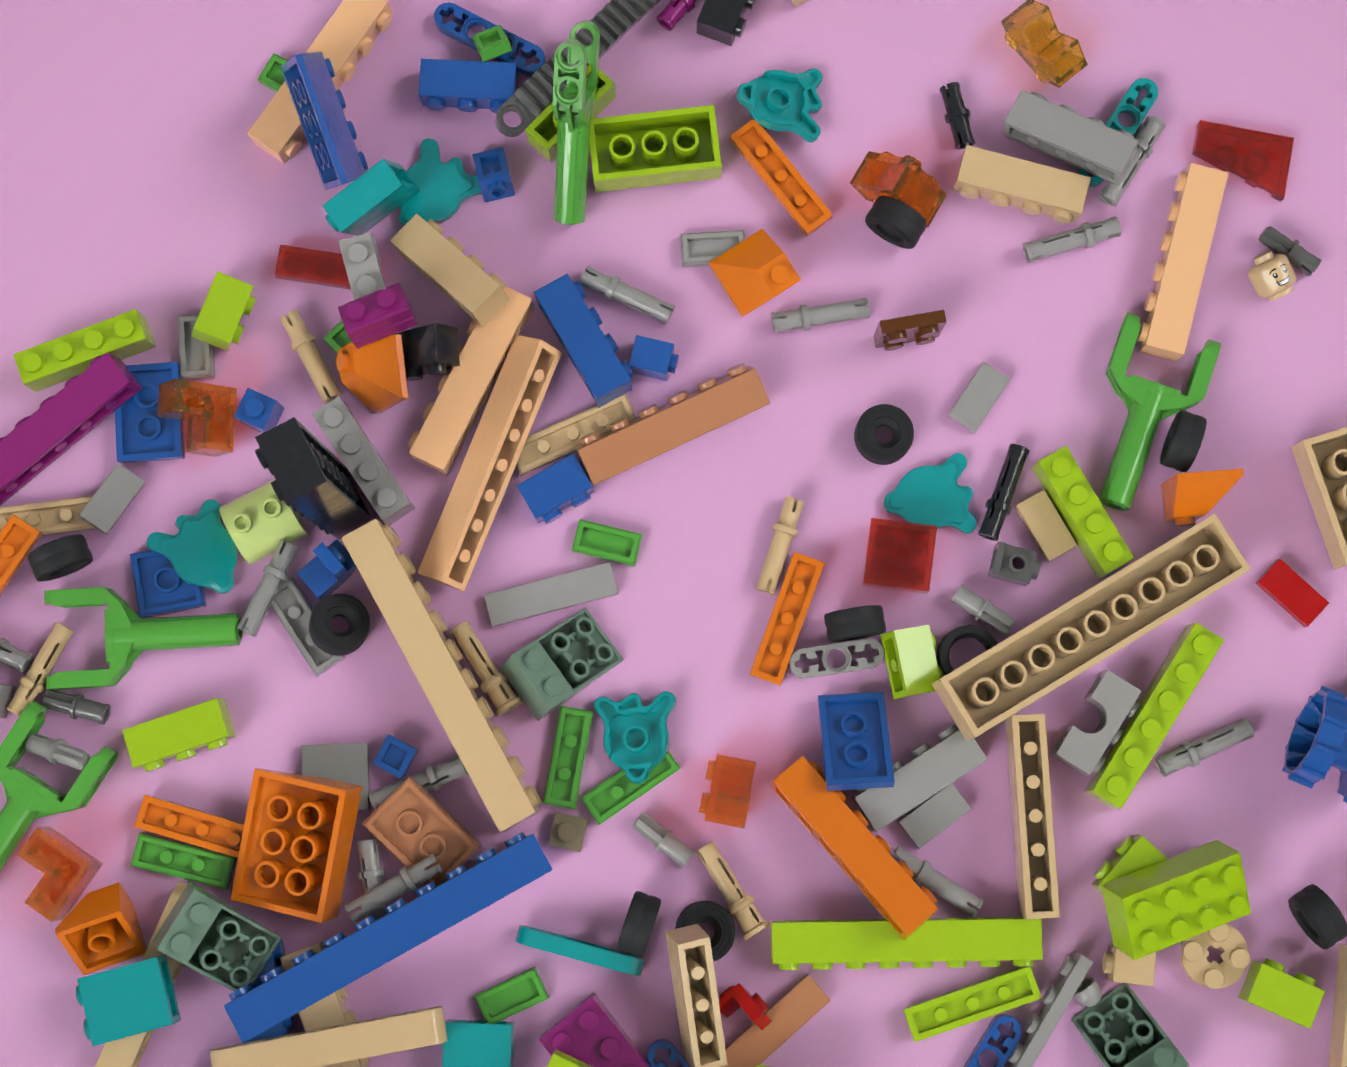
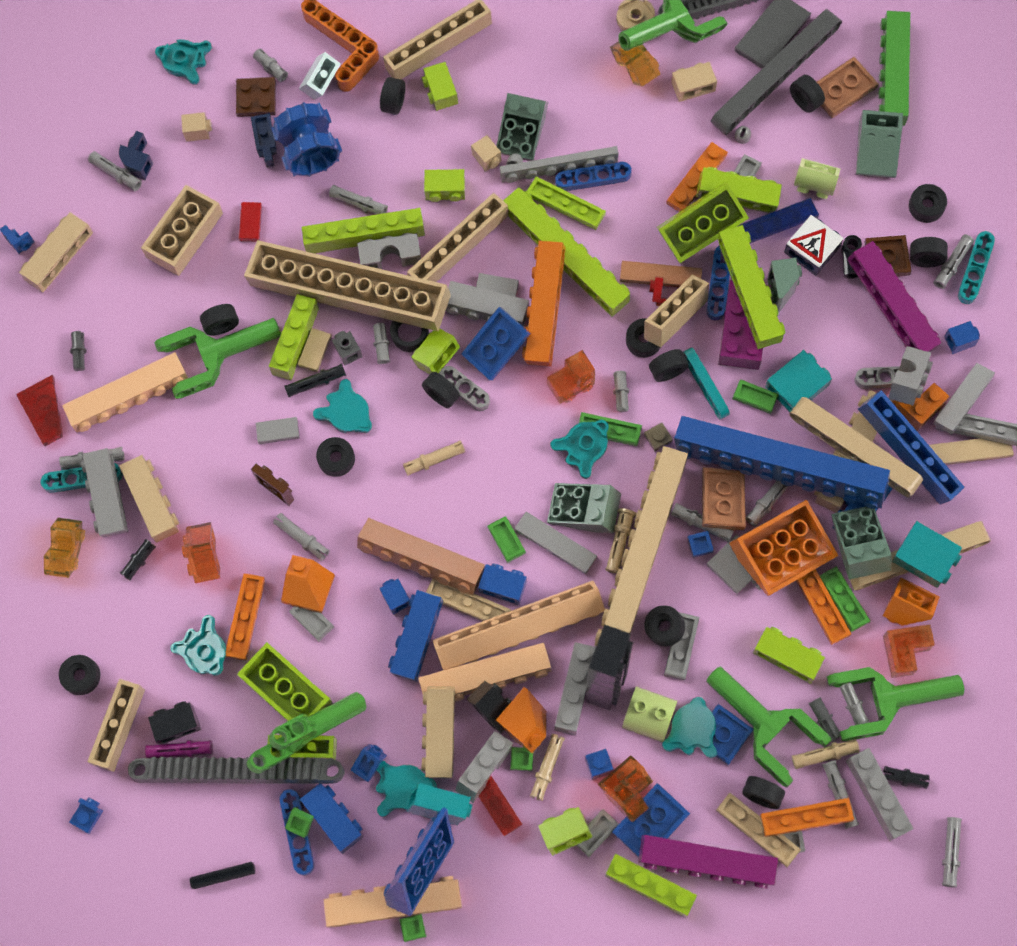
camera: 130 degrees left, 10 degrees down
(112, 499) = (710, 798): light grey tile -> none
(265, 594) = (679, 676): light grey pin -> none
(328, 569) = (645, 655): blue brick -> none
(377, 315) = (496, 735): magenta brick -> none
(393, 888) = (759, 485): light grey pin -> none
(568, 757) = (625, 466): bright green tile -> none
(628, 295) = (375, 647): light grey pin -> none
(739, 903) = (617, 333): tan pin -> none
(787, 619) = (466, 424): orange plate -> none
(895, 222) = (222, 537): black tyre -> none
(899, 556) = (390, 397): clear red brick -> none
(939, 883) = (526, 259): light grey pin -> none
(1079, 237) = (150, 448): light grey pin -> none
(1176, 899) = (440, 153): lime brick -> none
(1195, 494) = (240, 294): orange slope -> none
(1215, 974) = (448, 116): tan plate -> none
(1272, 275) = (98, 347): tan head -> none

